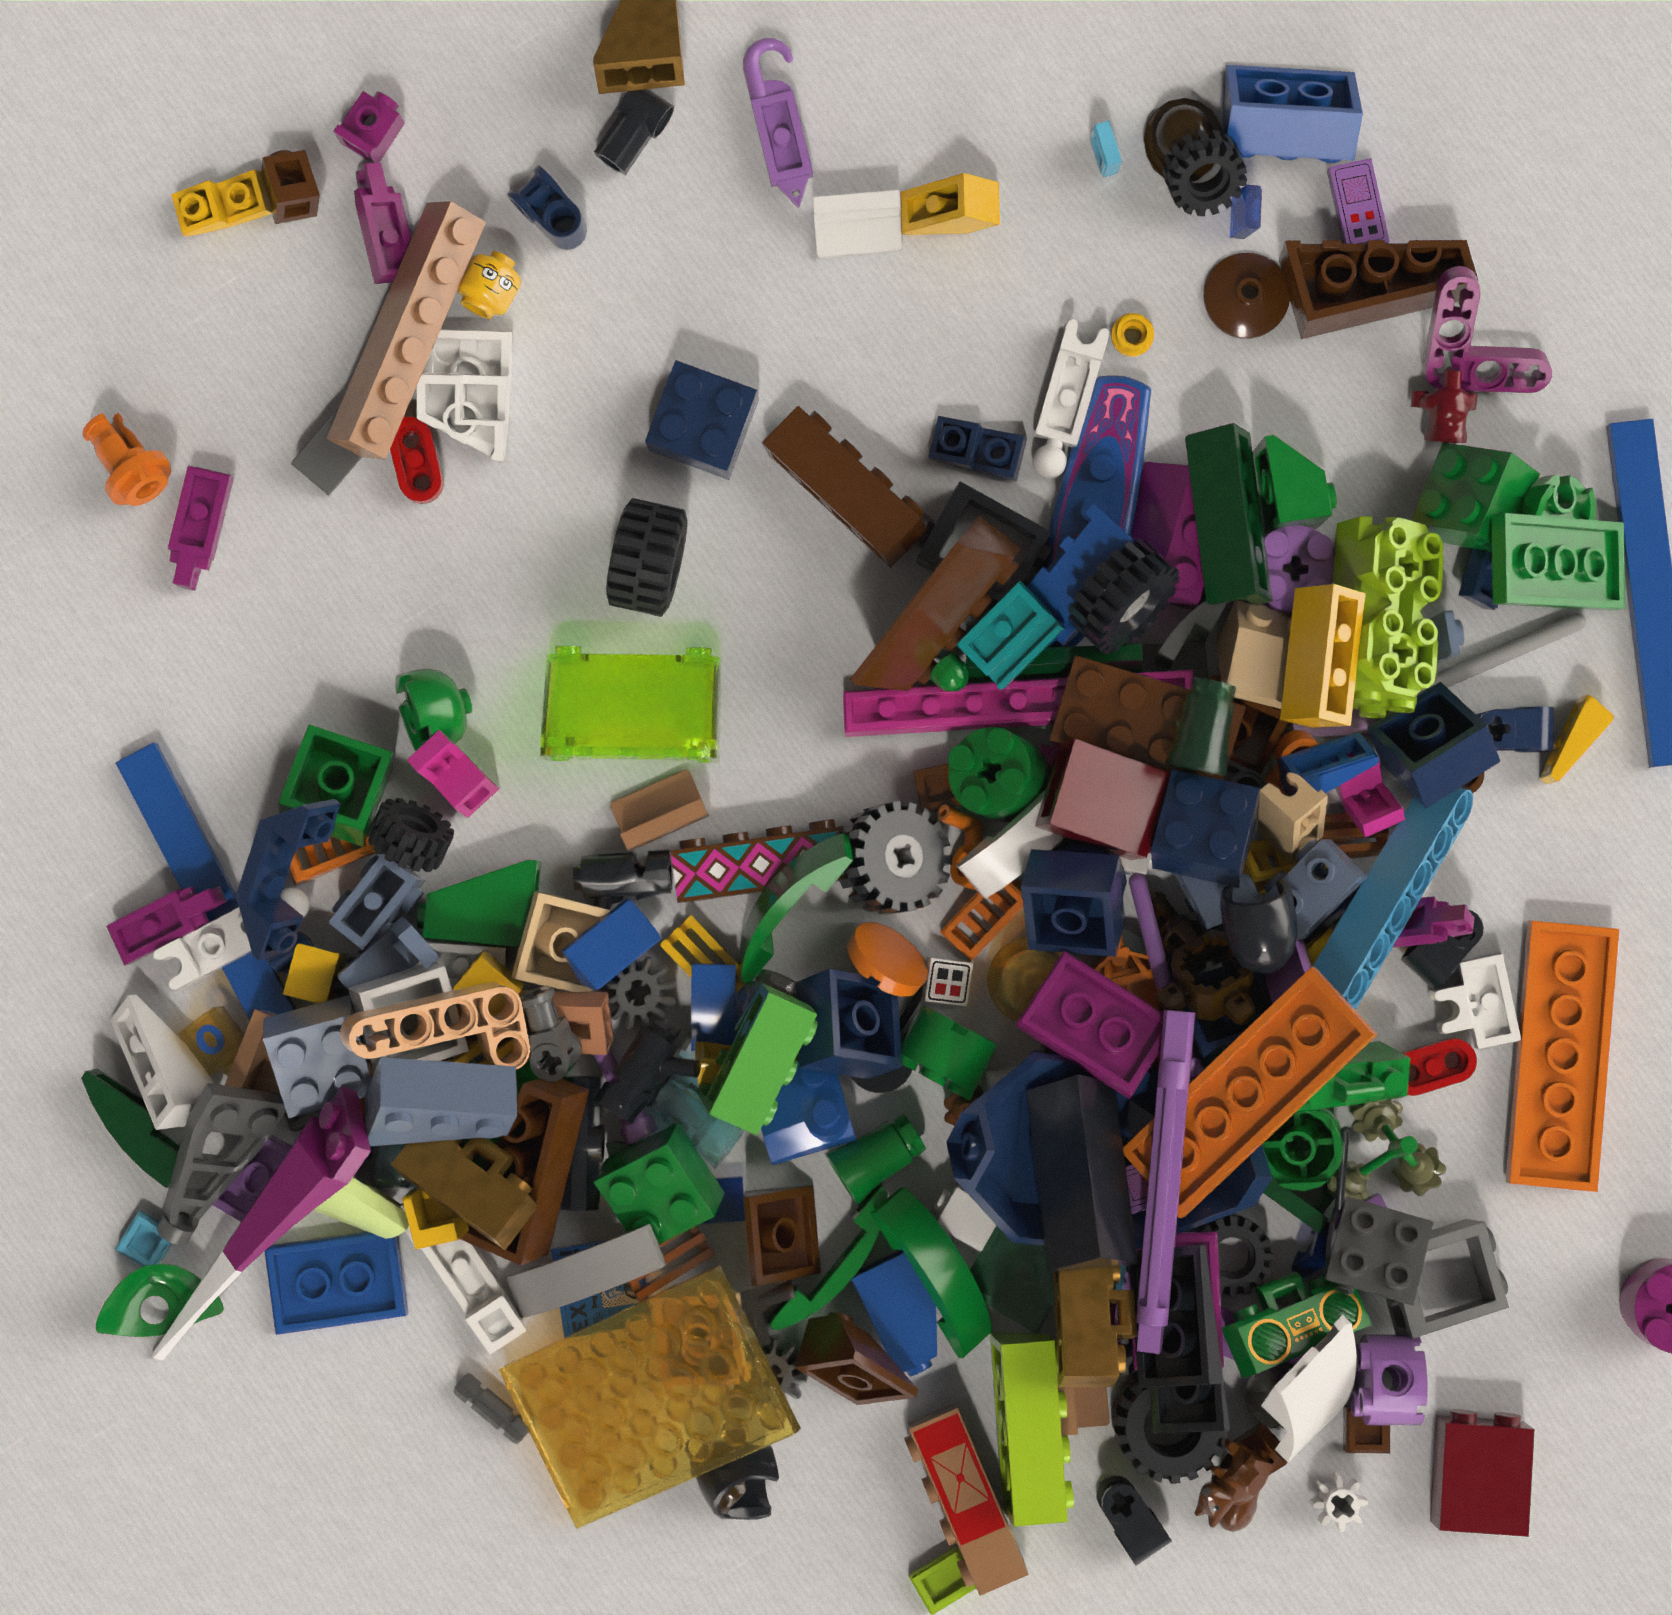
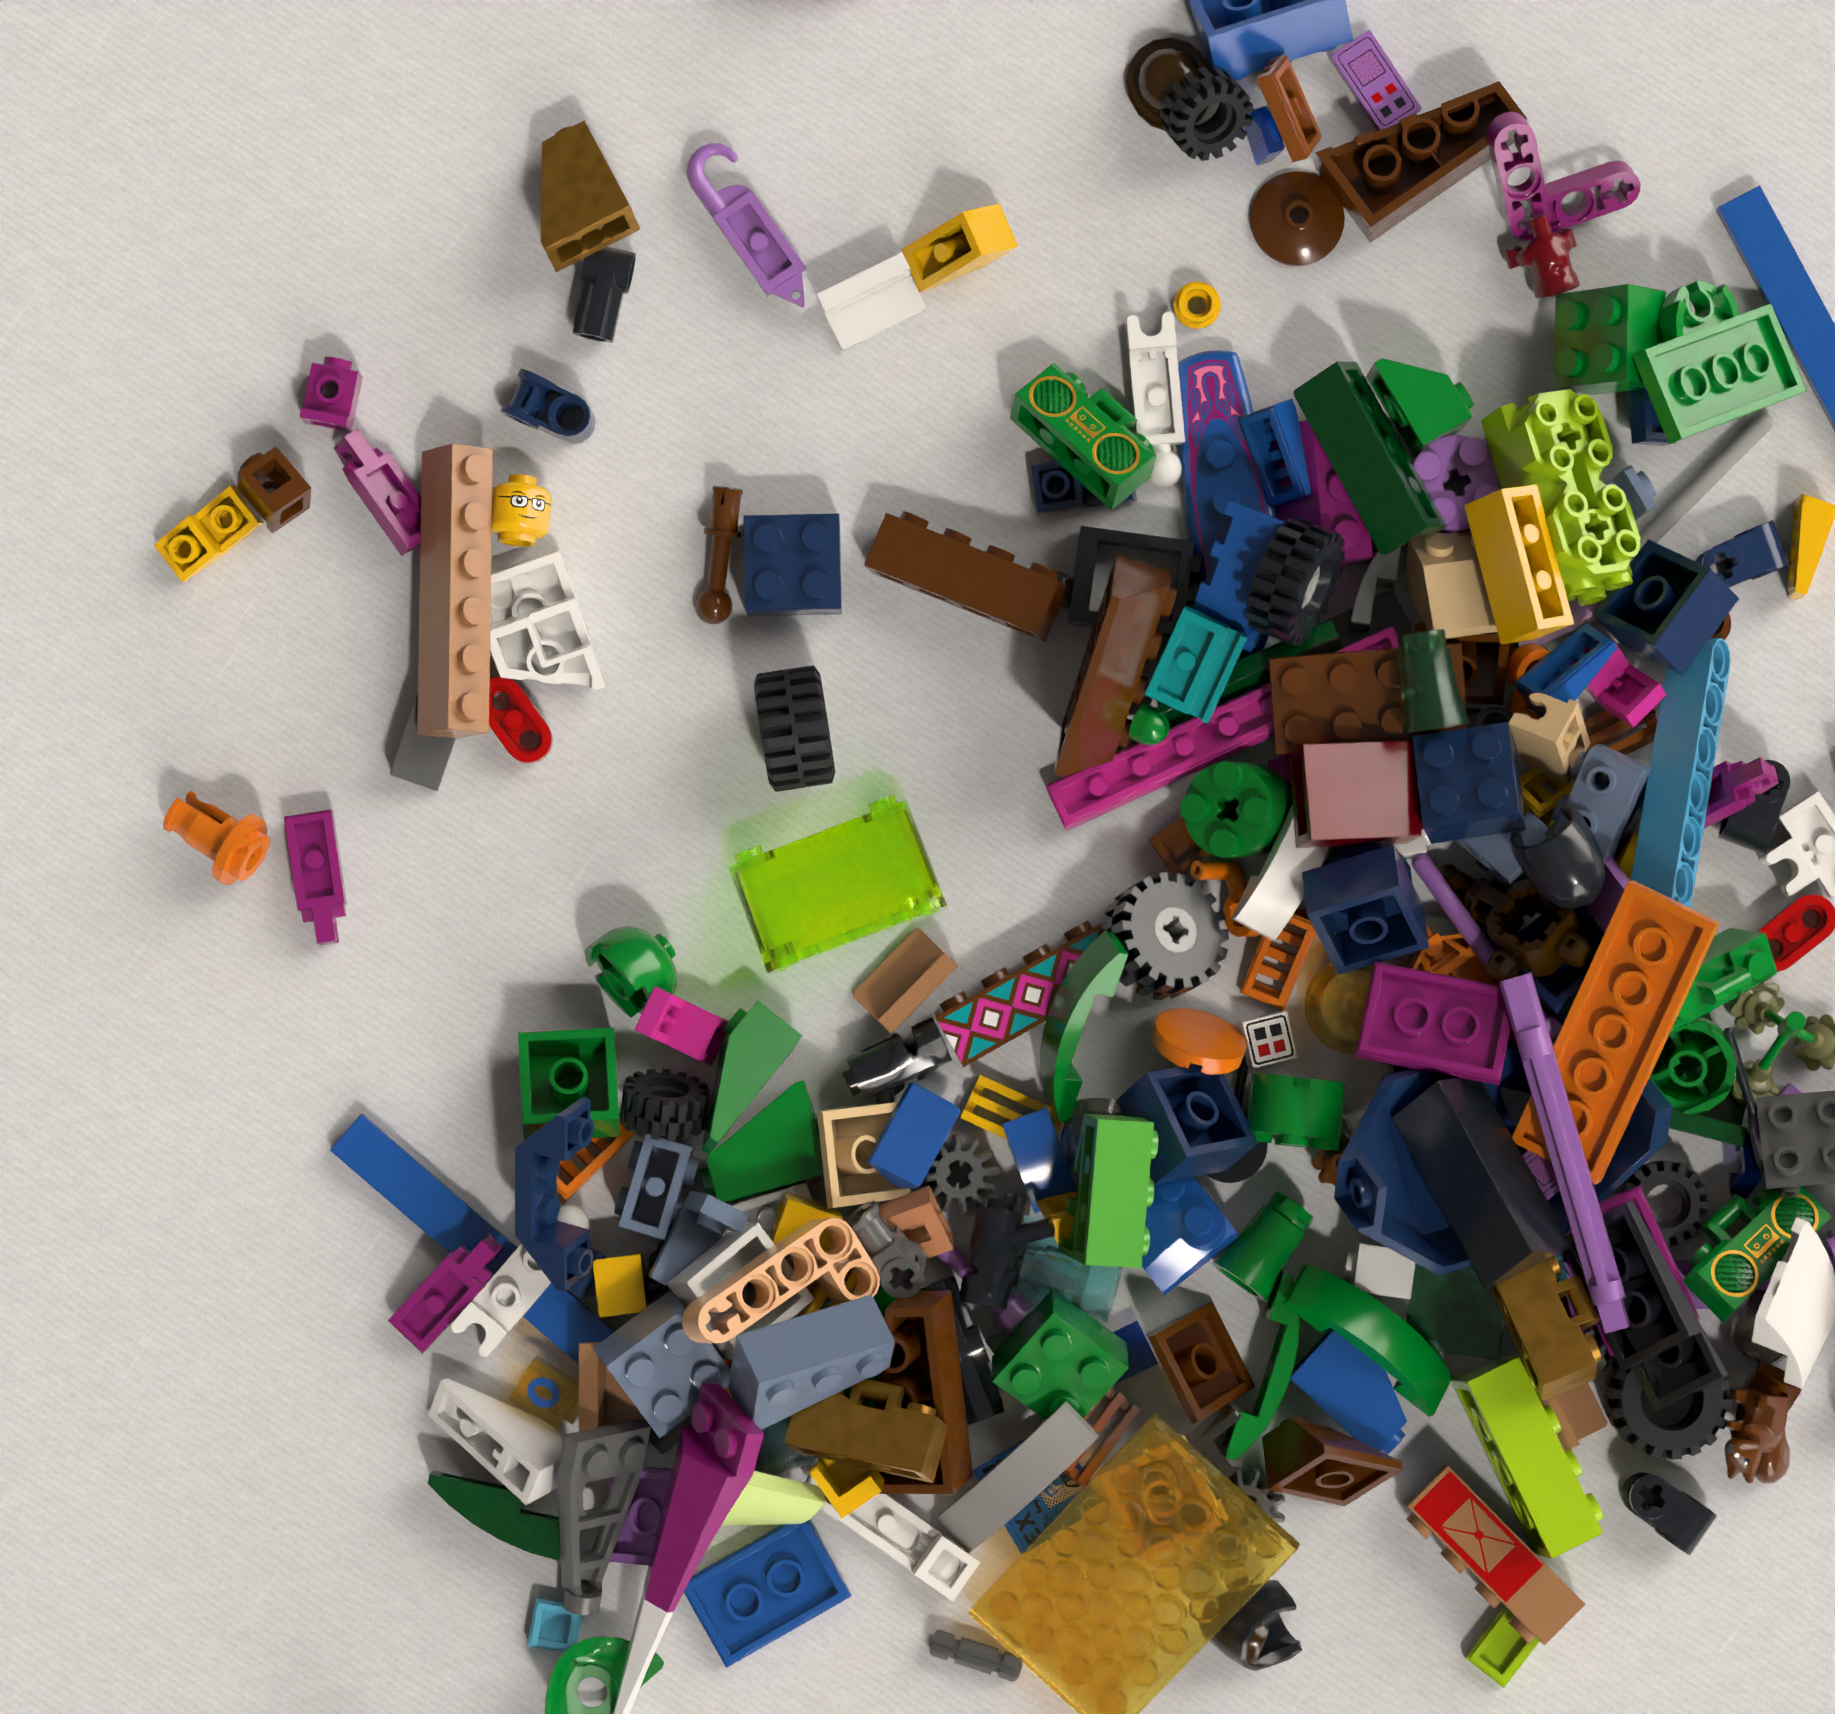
camera: 25 degrees left, 0 degrees up
(501, 823) = (746, 1062): none -> green slope
(624, 427) = (714, 603): none -> reddish brown pin
(993, 405) = (1085, 434): none -> green piece
(1105, 149) = (1095, 126): medium azure tile -> none
(1166, 471) = (1260, 440): none -> blue slope
(1277, 195) = (1289, 108): none -> dark orange tile

